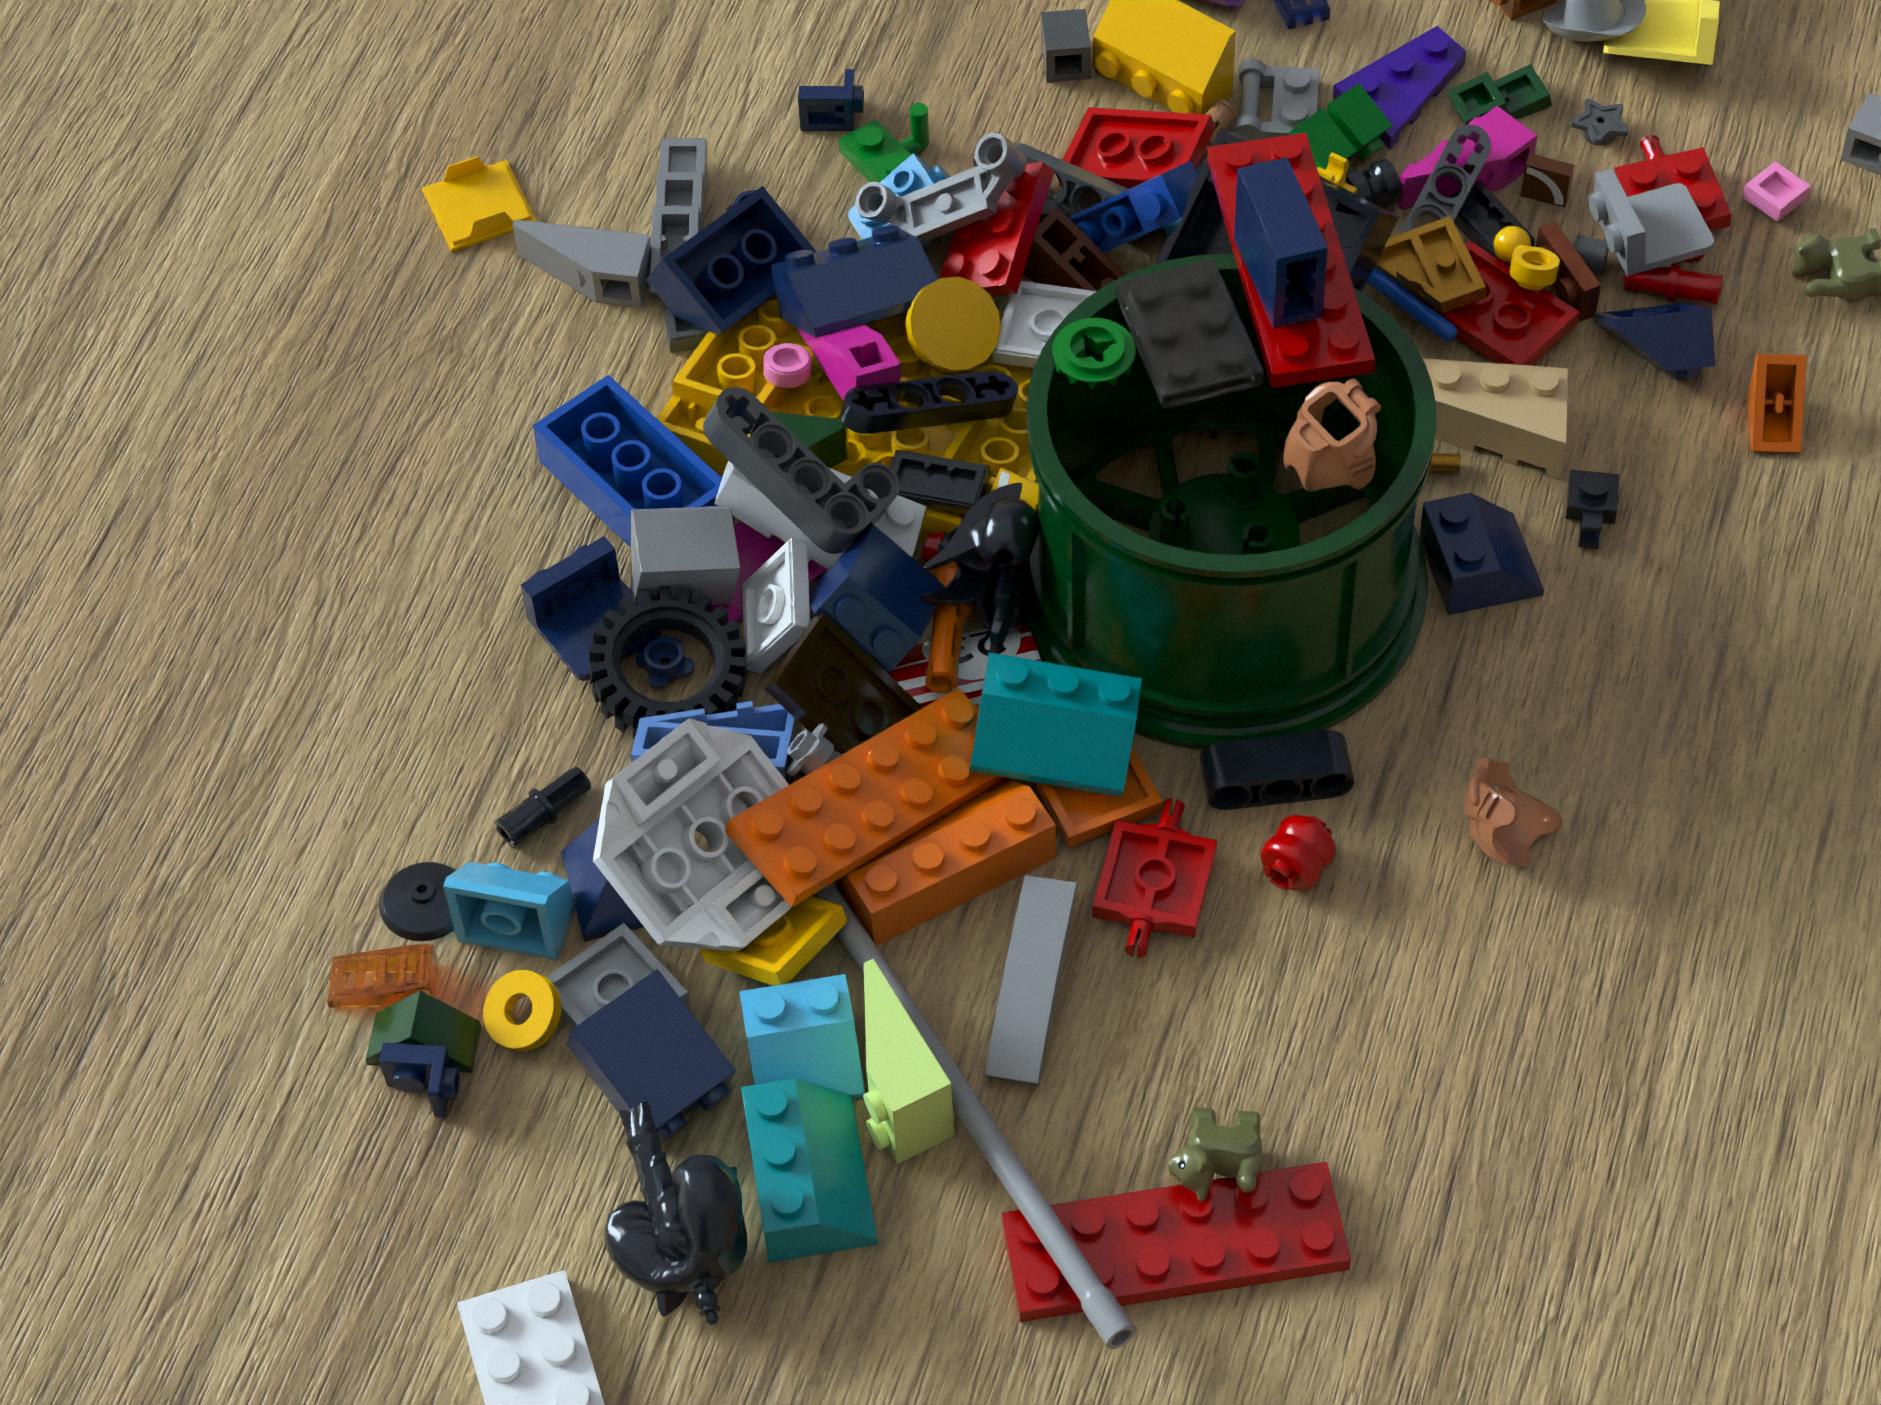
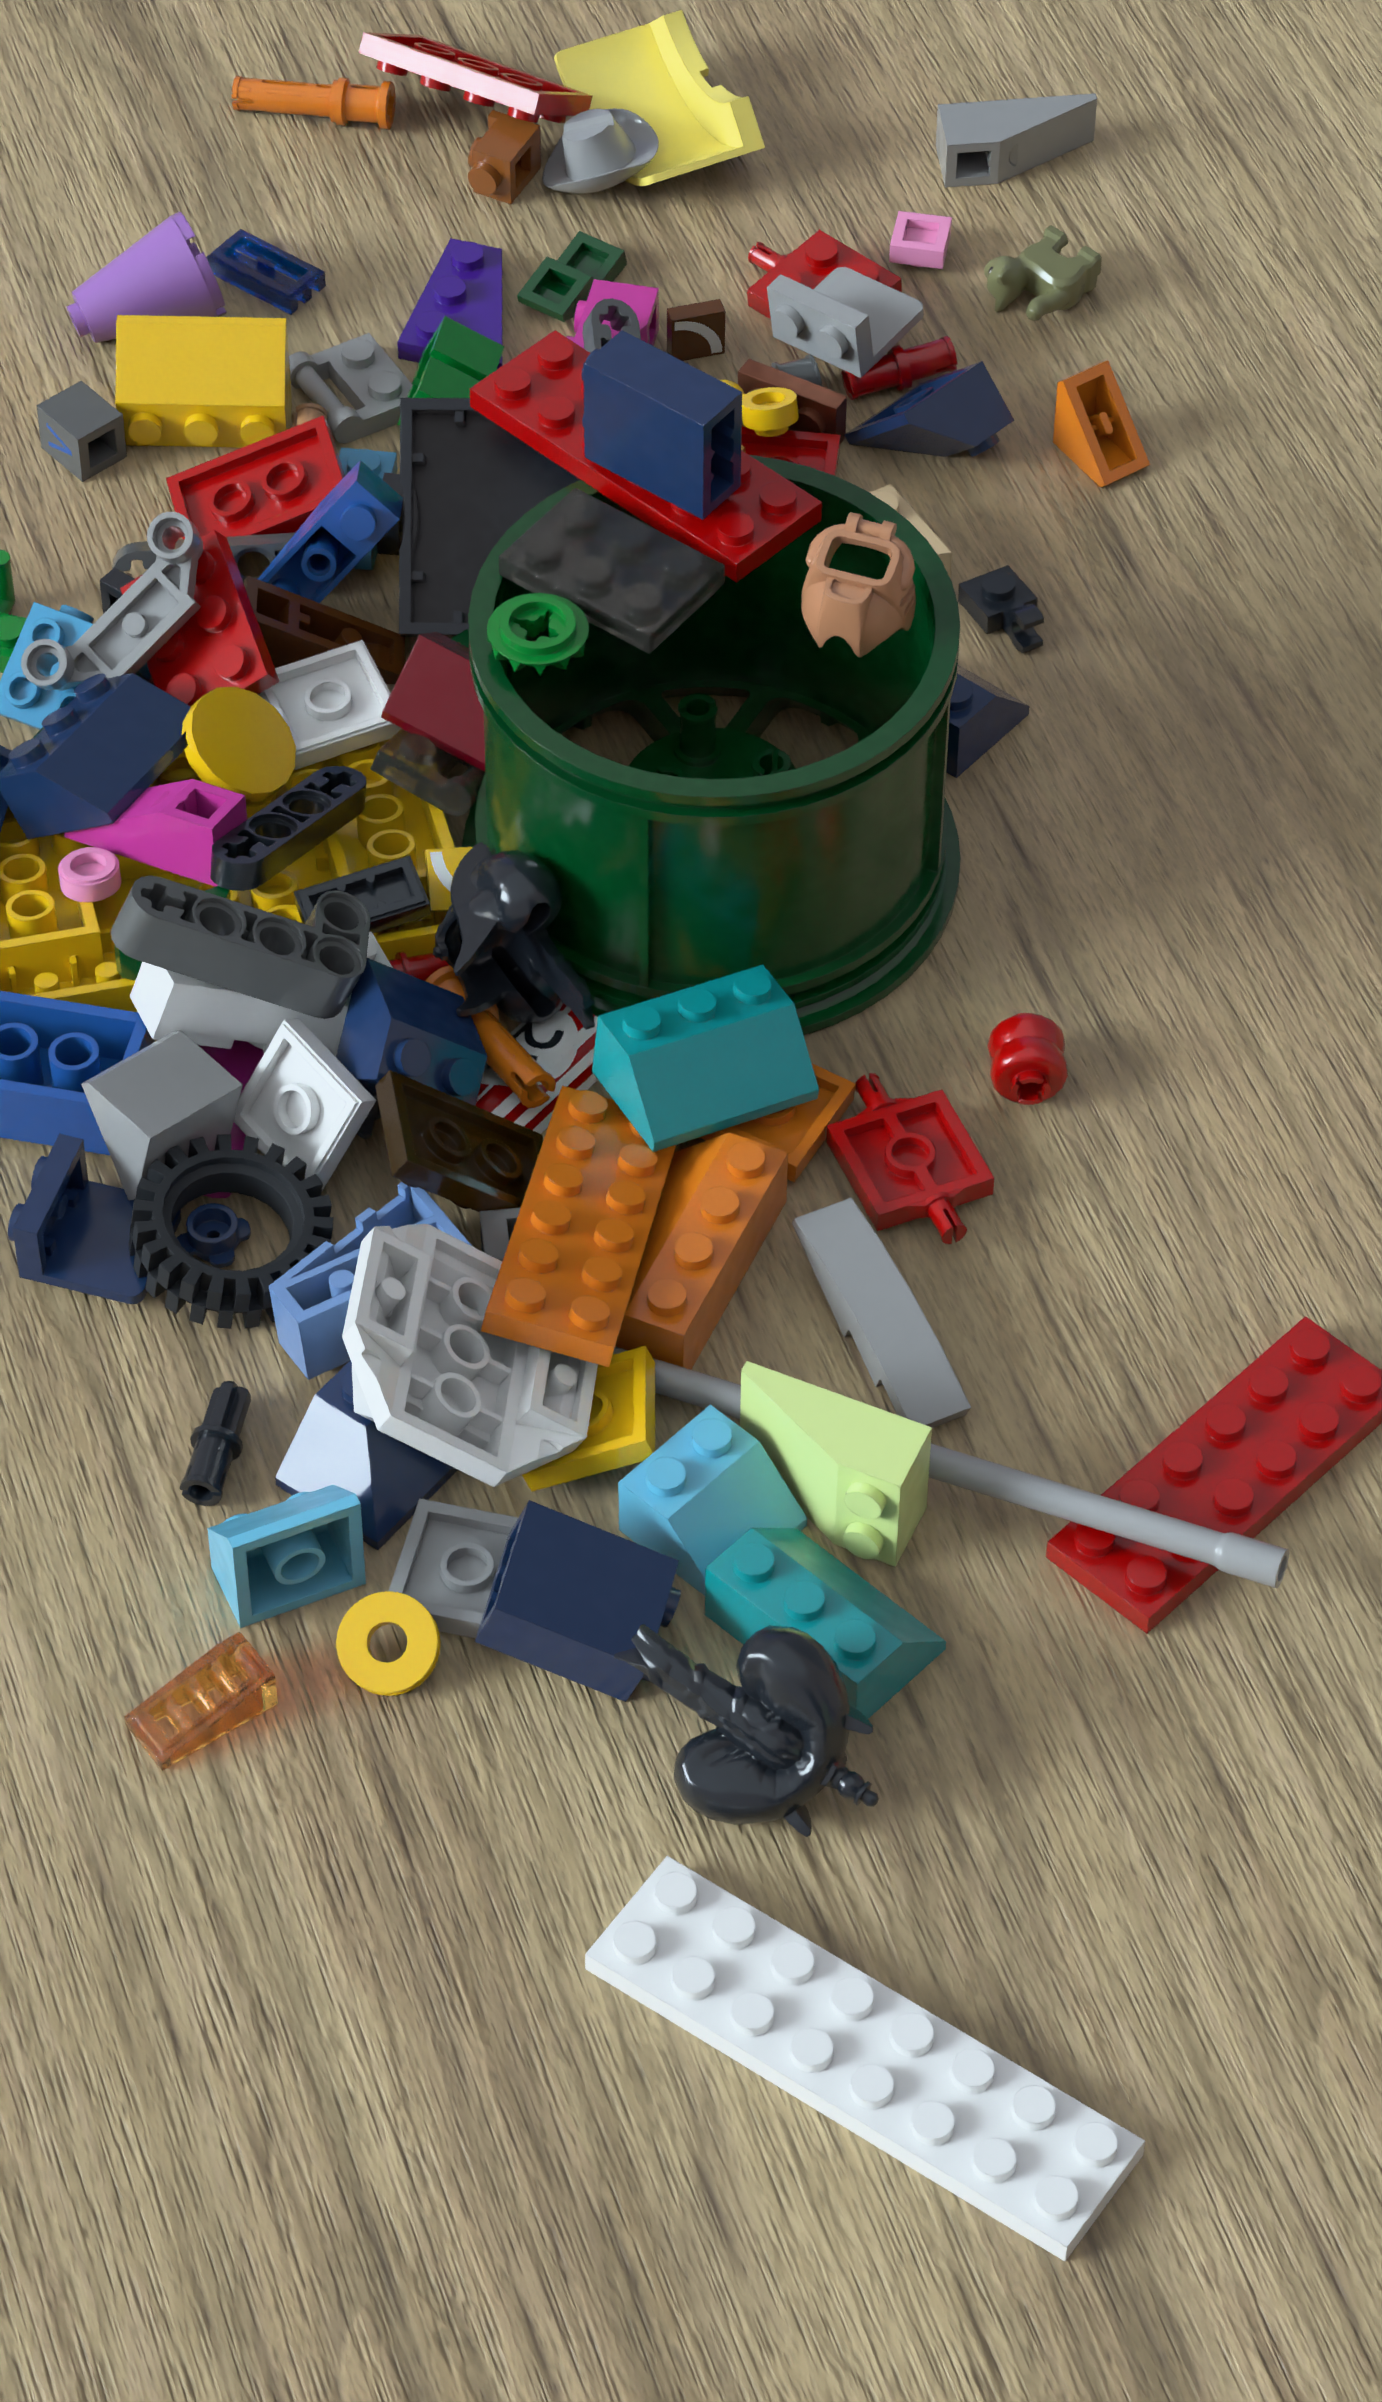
camera: 40 degrees left, 5 degrees down
(416, 903) = (166, 1610): black piece -> none
(419, 1068) = (335, 1758): dark blue bracket -> none
(426, 1022) = (297, 1732): dark green slope -> none
(809, 751) = (484, 1216): light grey plate -> none
(1219, 1151) = (1209, 1359): olive animal -> none
(1276, 770) = (935, 997): black beam -> none
(1508, 820) = (1189, 919): nougat helmet -> none
(1597, 132) = (692, 257): dark grey plate -> none

